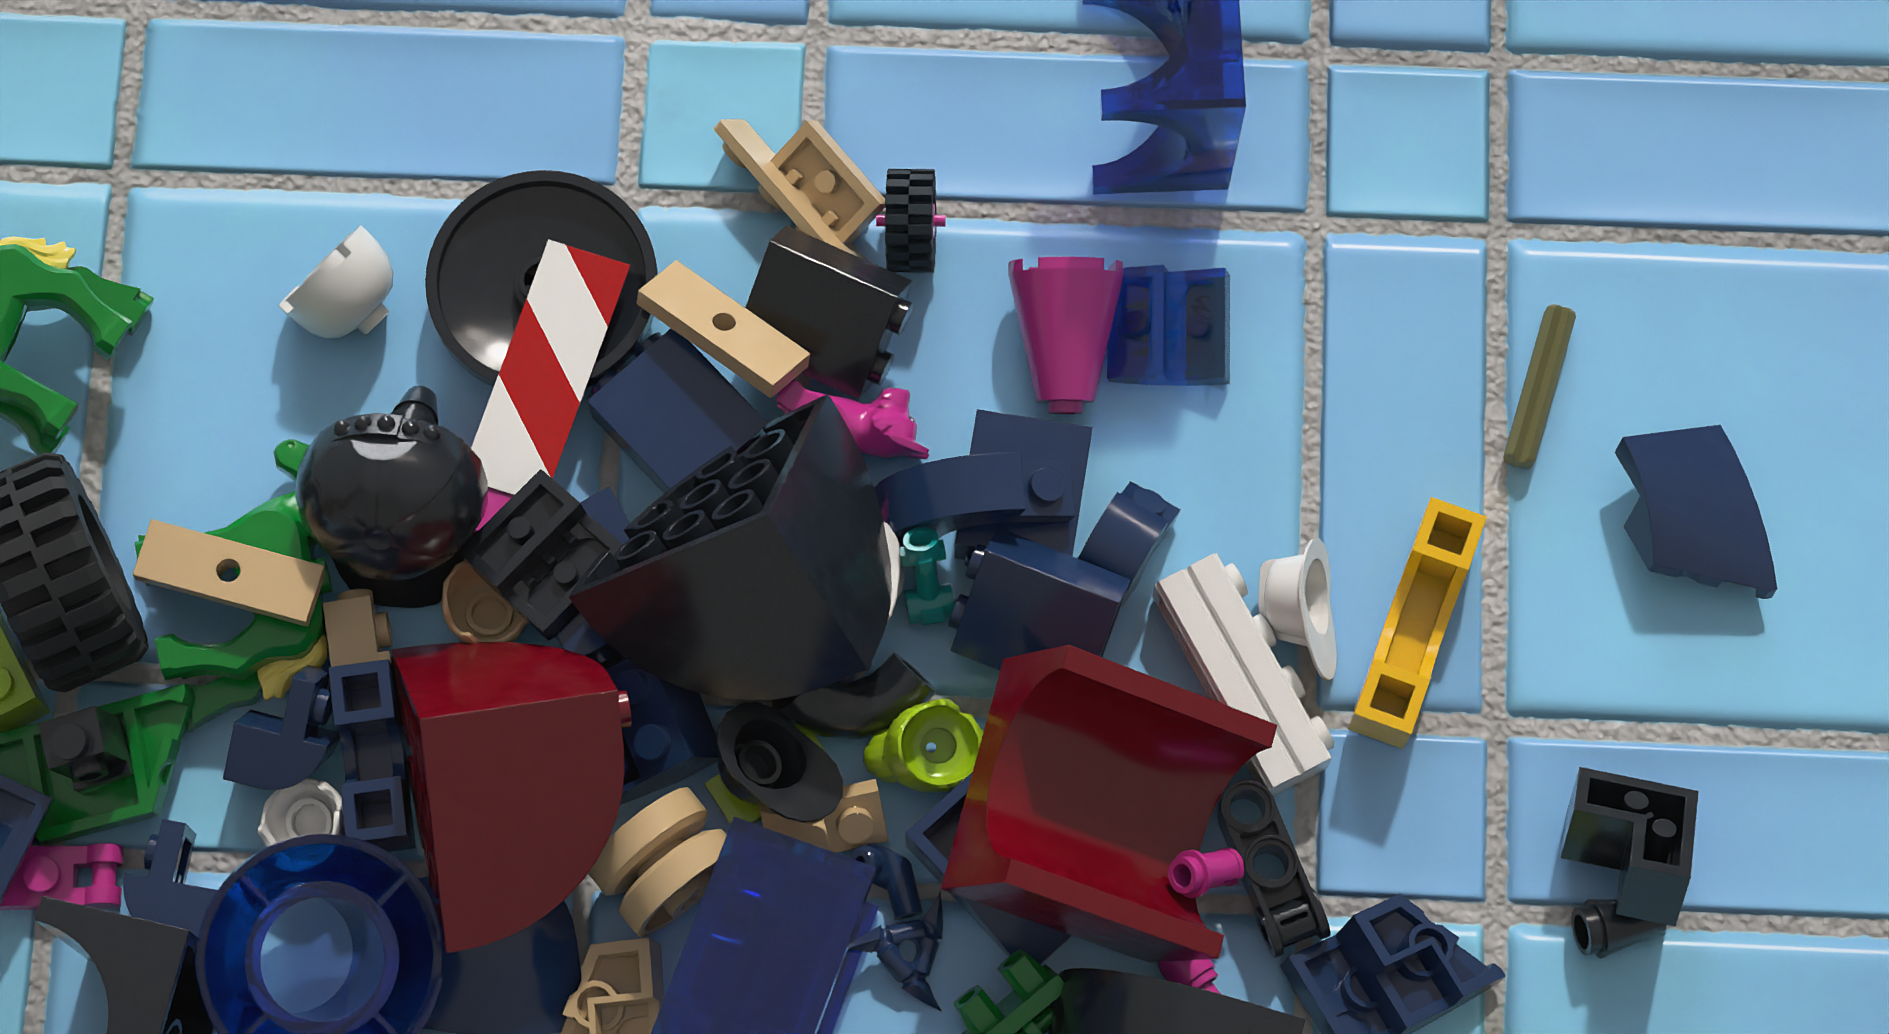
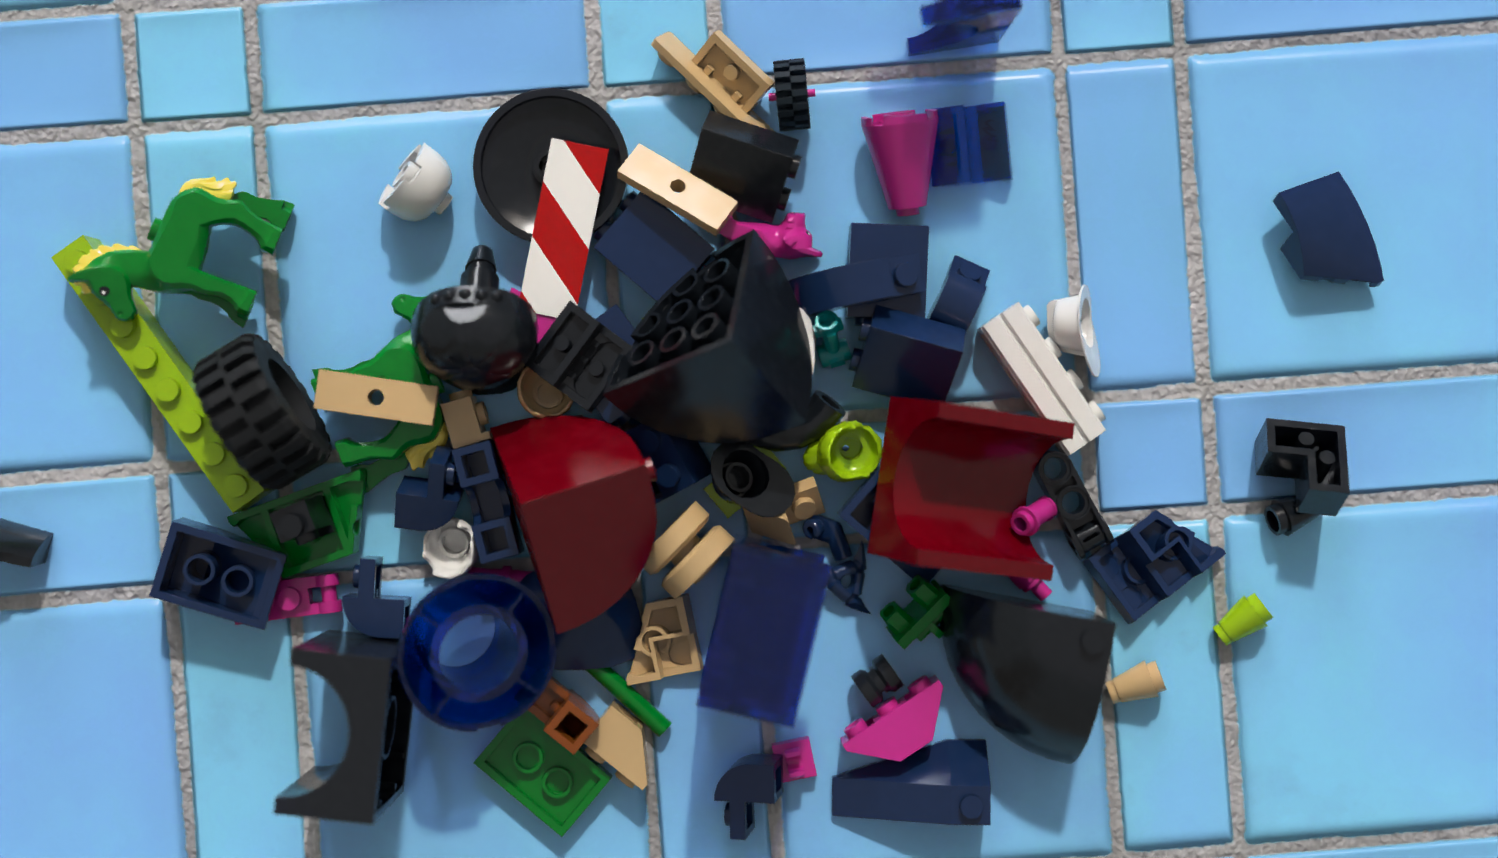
camera: 10 degrees left, 15 degrees up
(1416, 623) = (1143, 363): yellow arch -> none
(1539, 386) = (1217, 158): olive axle -> none

